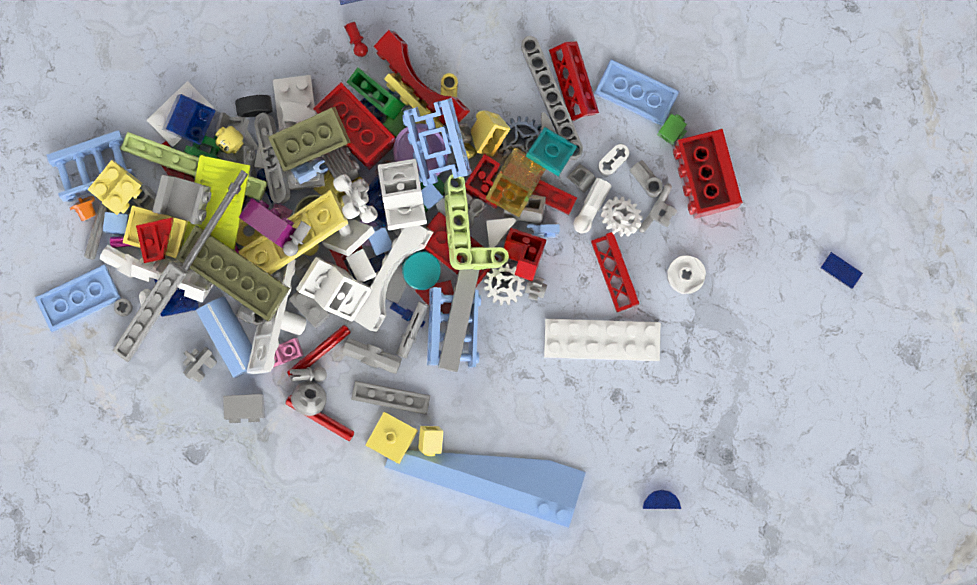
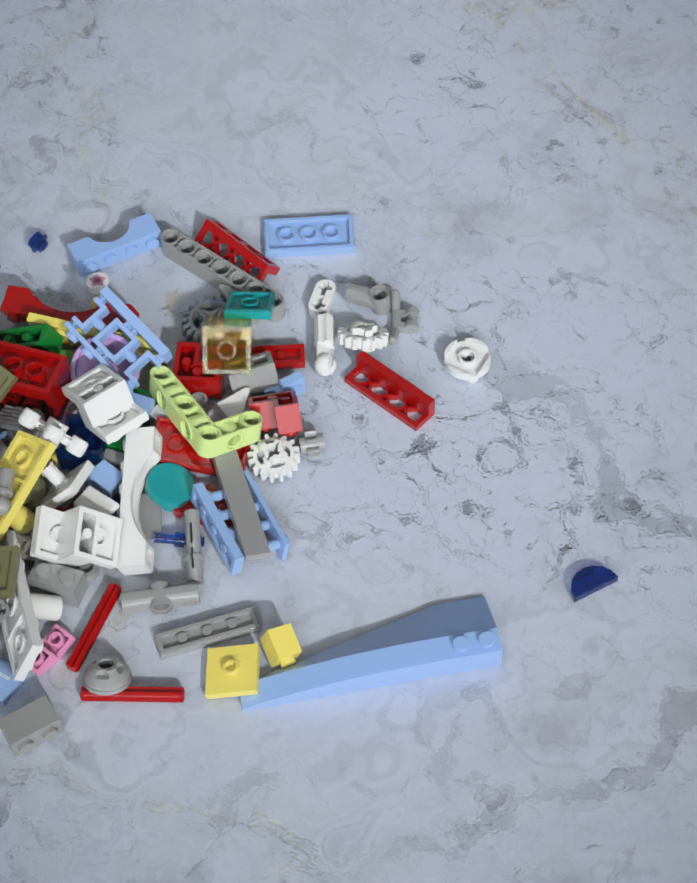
camera: 25 degrees left, 30 degrees down
(318, 374) = (92, 651): light grey pin -> none
(458, 51) = (96, 282): none -> white tile
(488, 132) = (172, 322): light yellow torso -> none
(511, 26) = (92, 255): none -> light blue arch
(582, 178) = (299, 330): light grey slope -> none
(602, 339) = (416, 461): white plate -> none
(673, 129) = (366, 245): bright green brick -> none
(718, 167) = (429, 258): red brick -> none
(841, 270) = (625, 285): clear blue tile -> none

